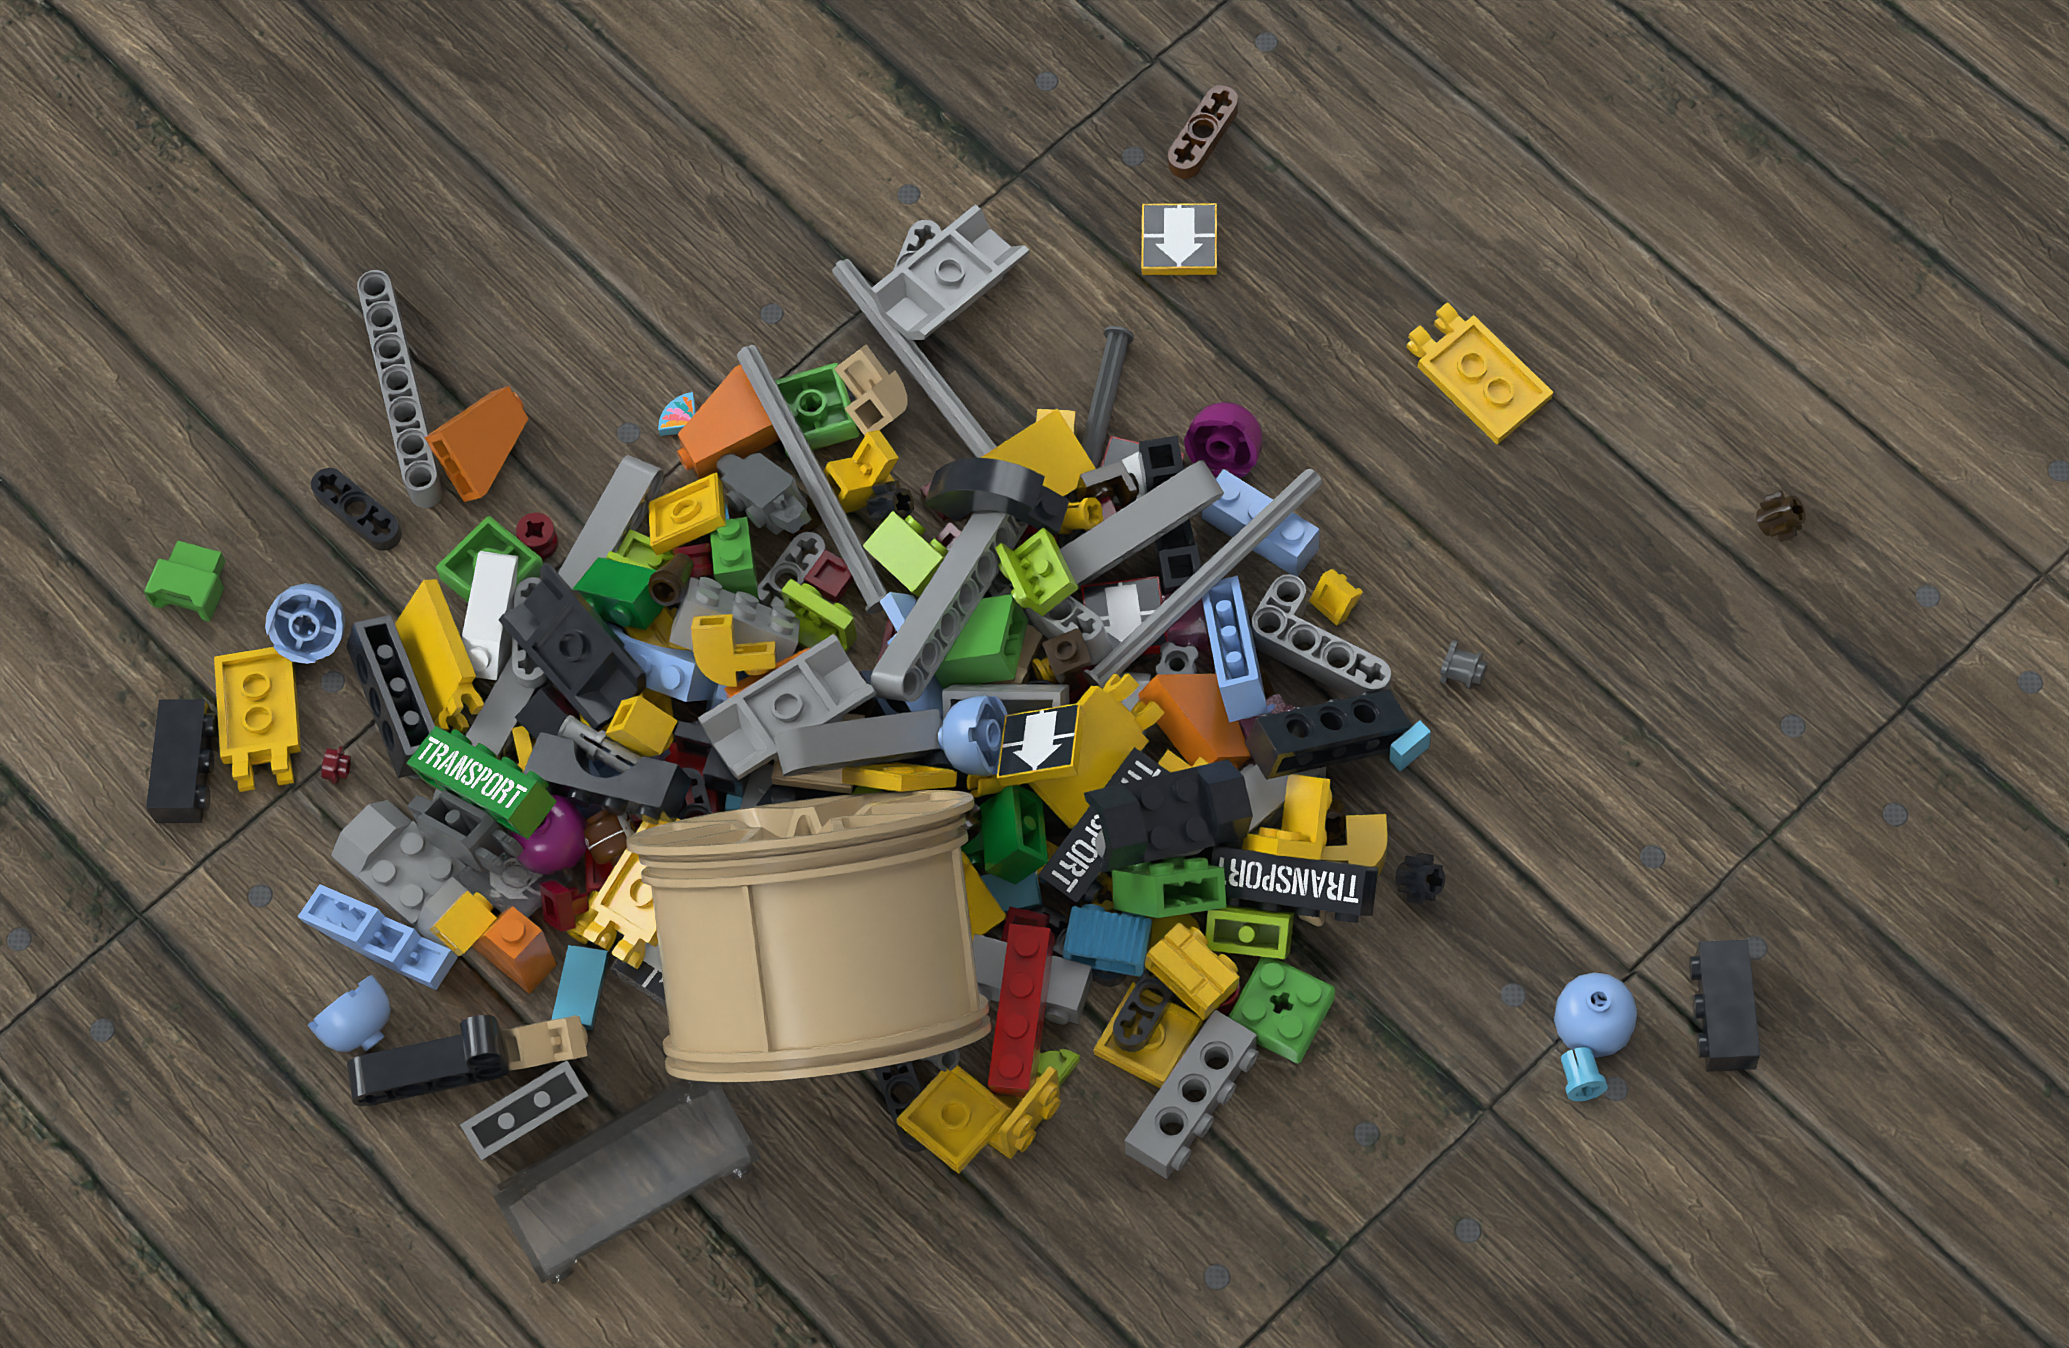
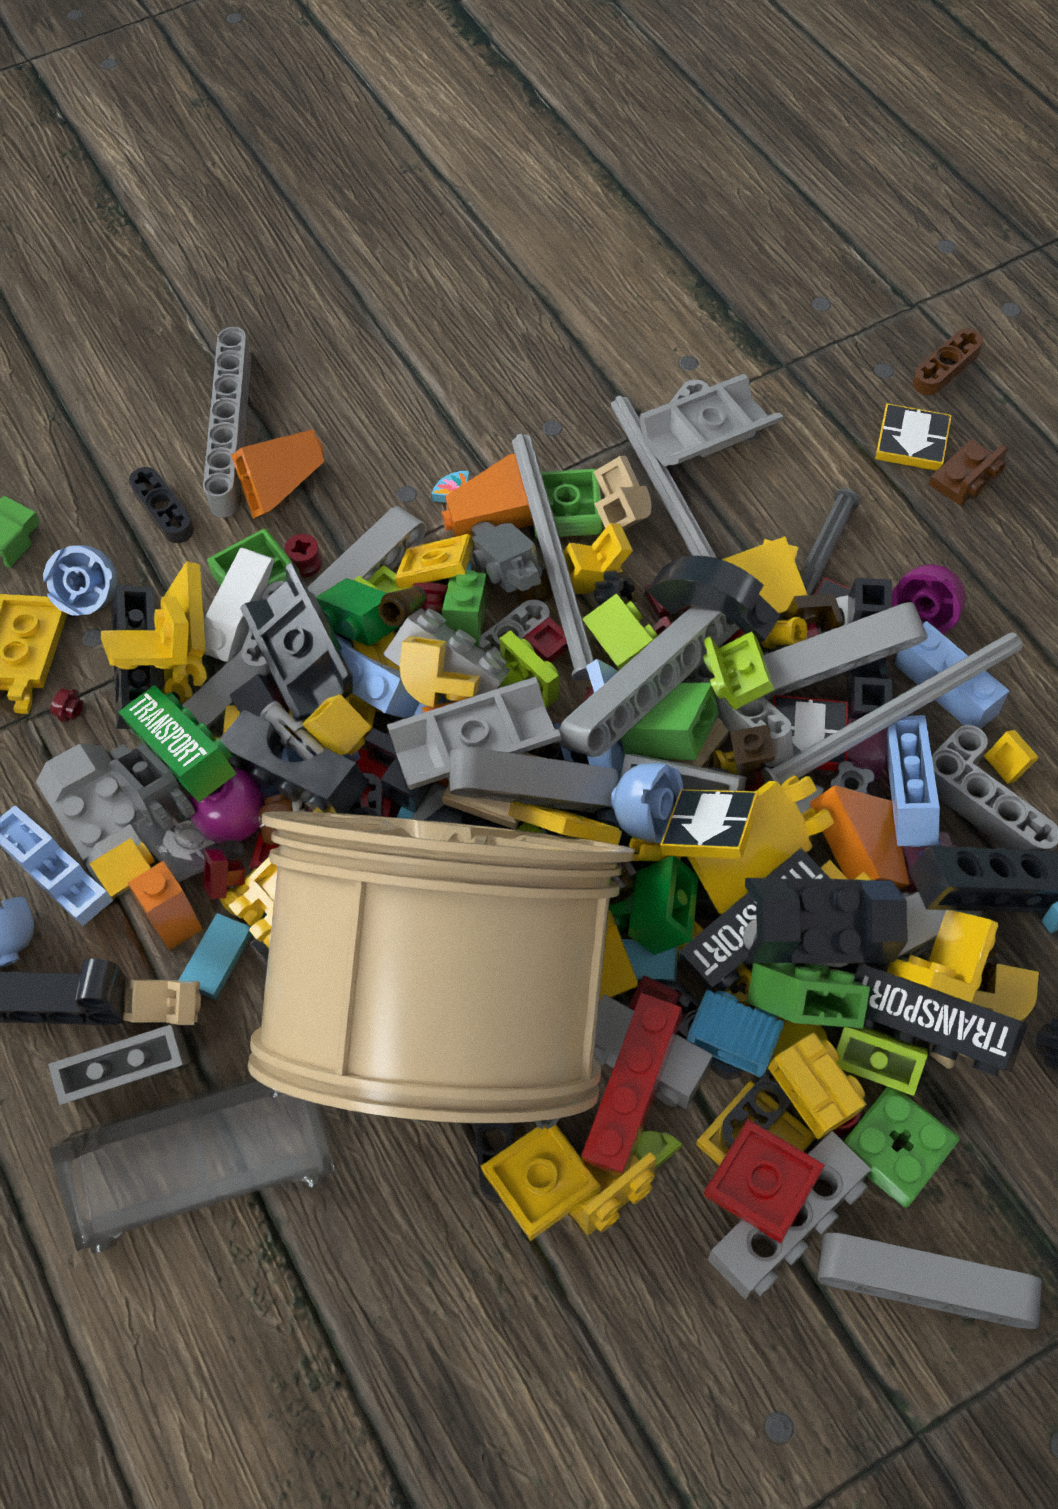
camera: 10 degrees right, 5 degrees down
(429, 682) = (159, 647): none -> yellow bracket
(1160, 1067) = (764, 1180): none -> red tile
(1245, 269) = (968, 471): none -> reddish brown bracket
(1327, 1120) = (930, 1280): none -> light grey beam

